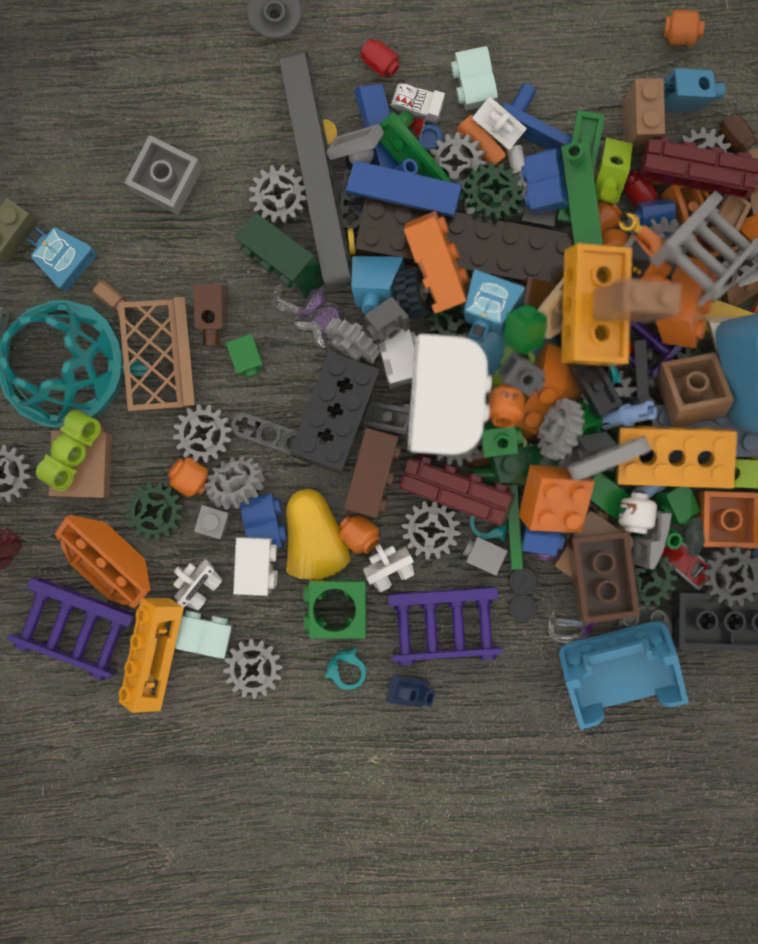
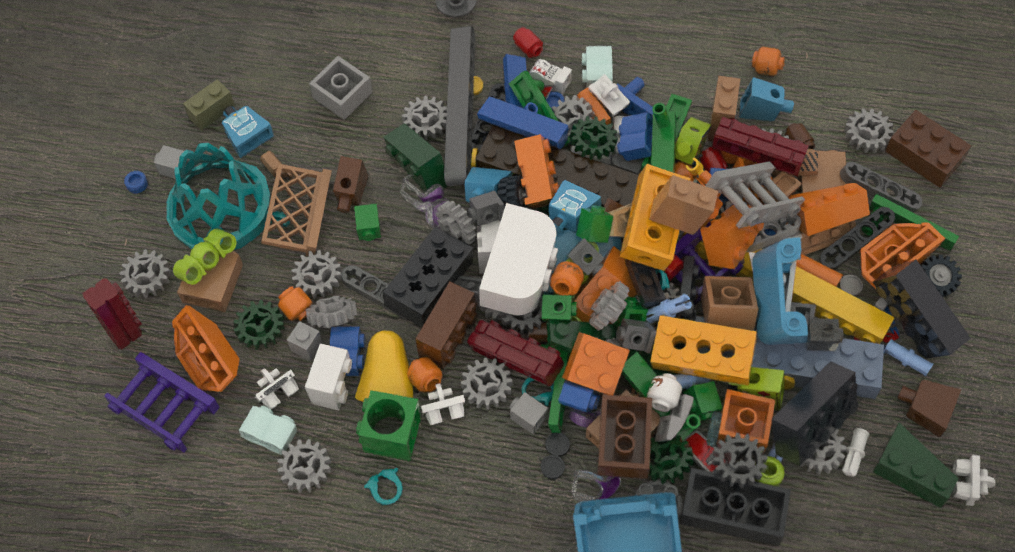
camera: 10 degrees right, 25 degrees down
(150, 654) = (219, 430): light orange brick -> none
(356, 144) = (495, 89): light grey tile -> none
(409, 691) = (435, 510): dark blue hips -> none
(429, 601) = (471, 440): dark purple fence -> none
(609, 458) = (644, 330): light grey beam -> none

